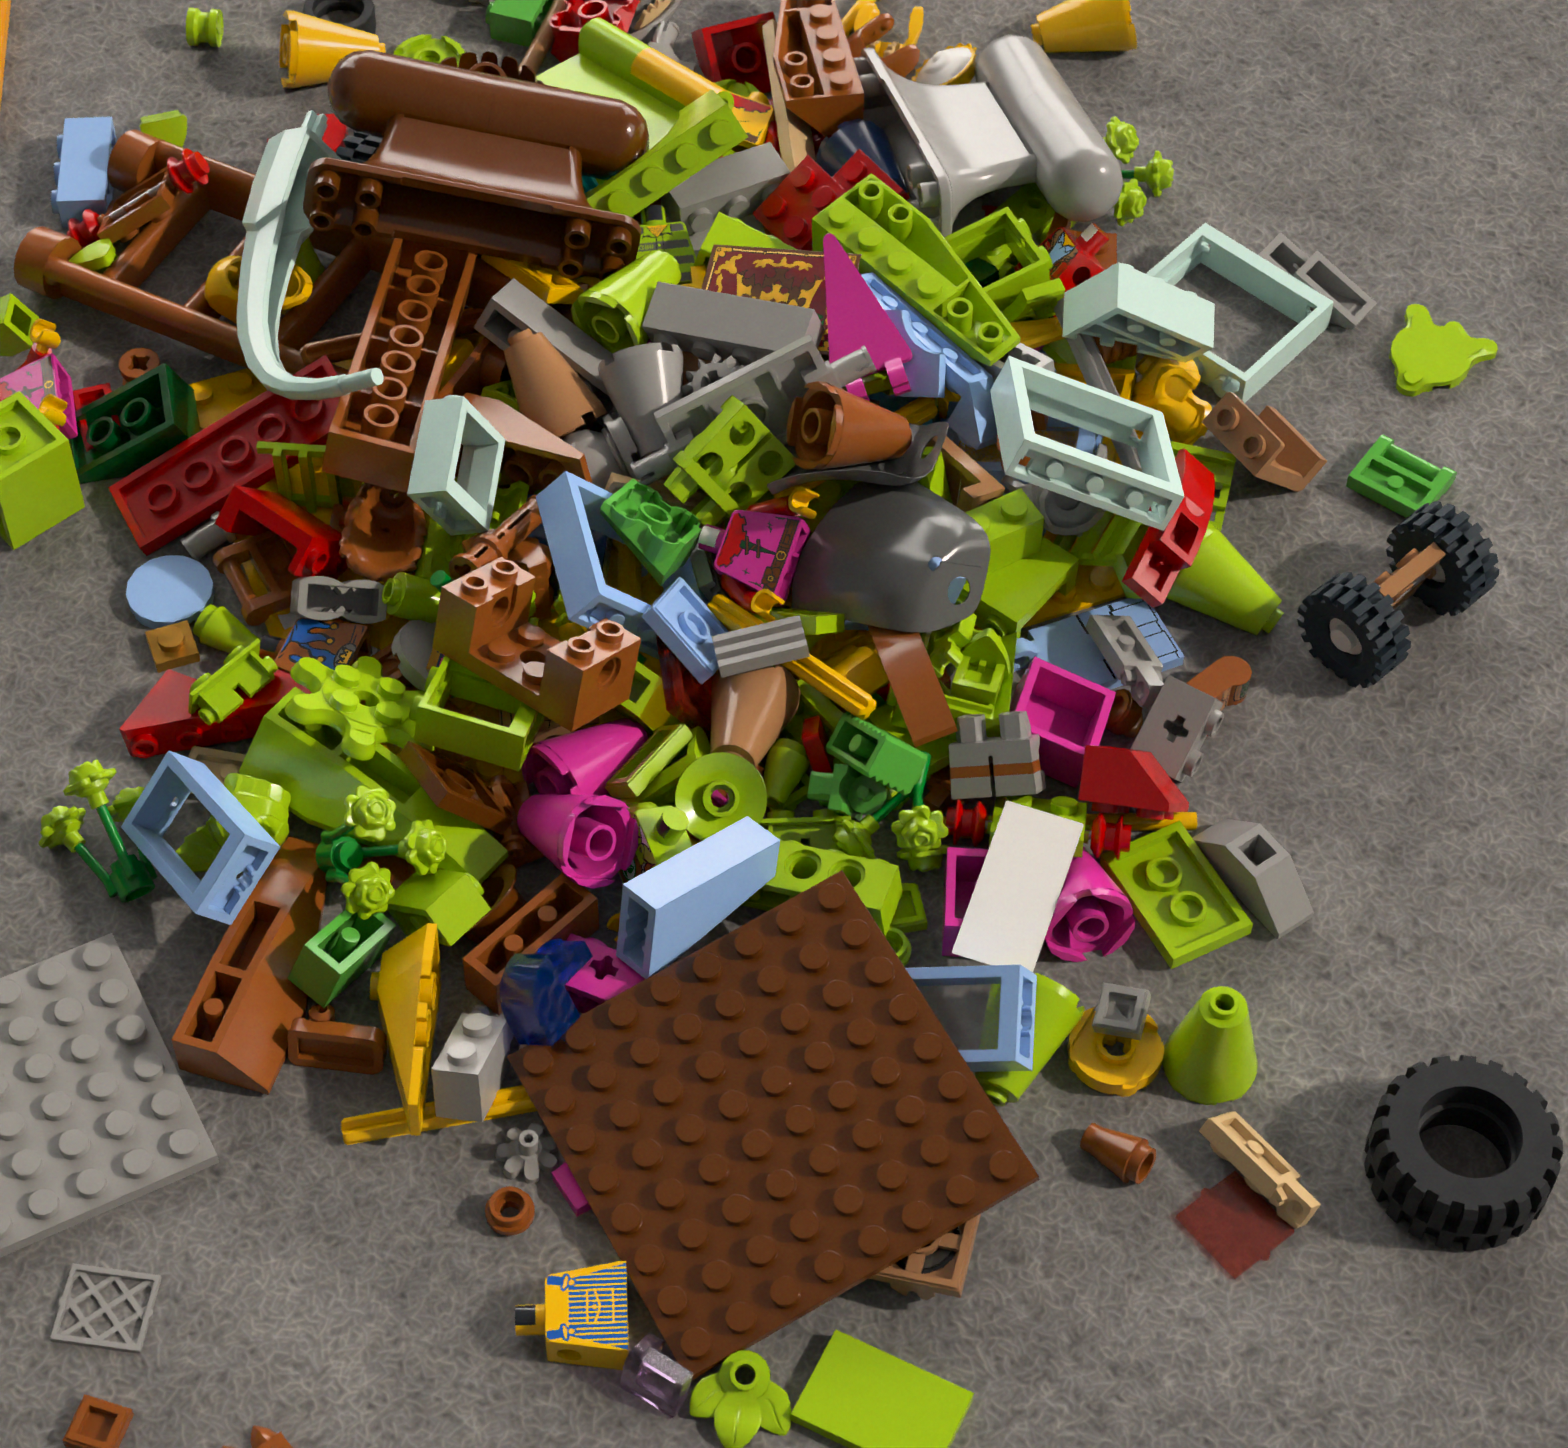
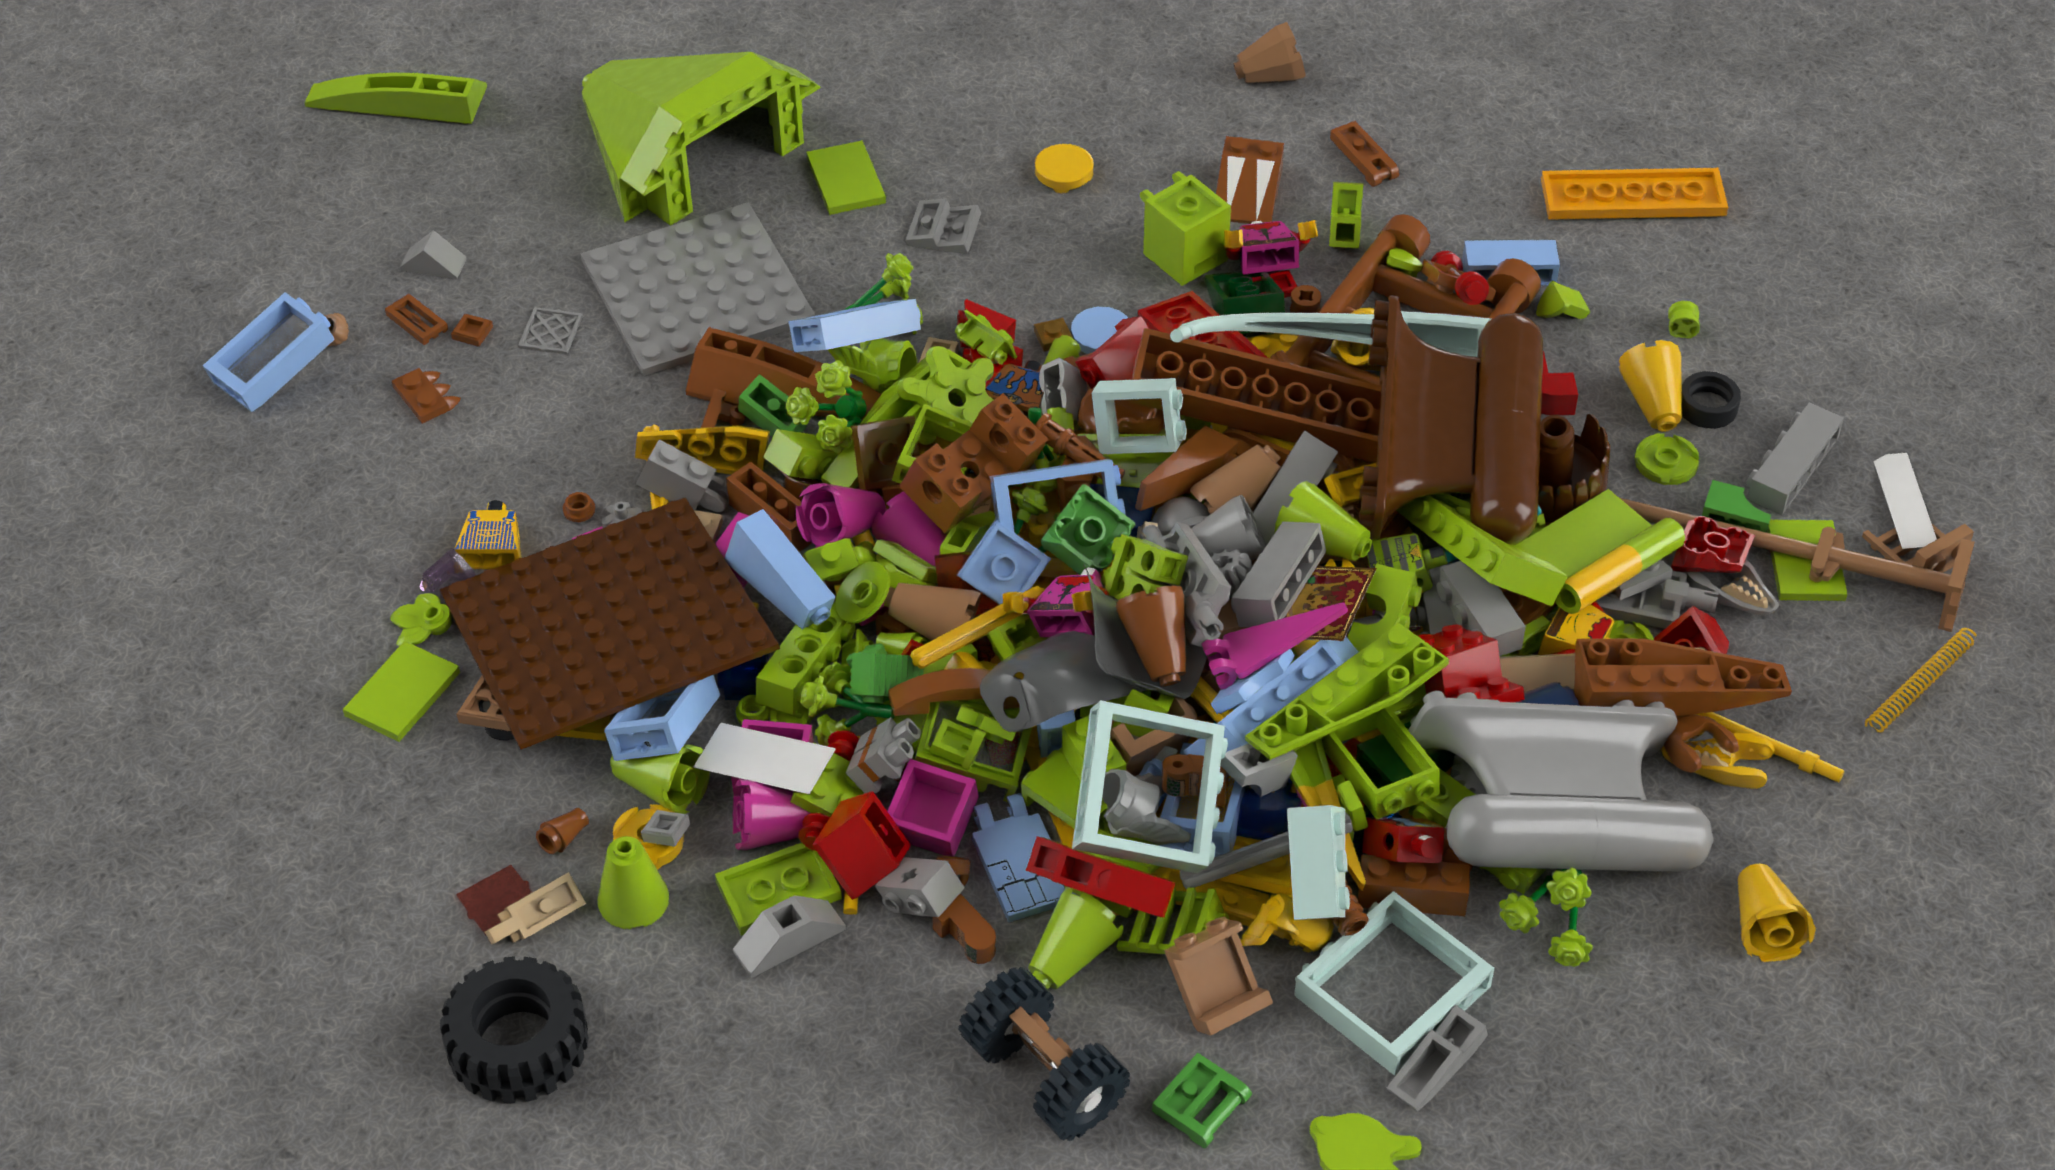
camera: 95 degrees right, 5 degrees down
(535, 992) = (714, 495): clear blue brick -> none
(760, 646) = (976, 584): light grey tile -> none
(948, 67) = (1688, 791): white piece -> none
(1128, 655) = (992, 859): light grey hinge -> none

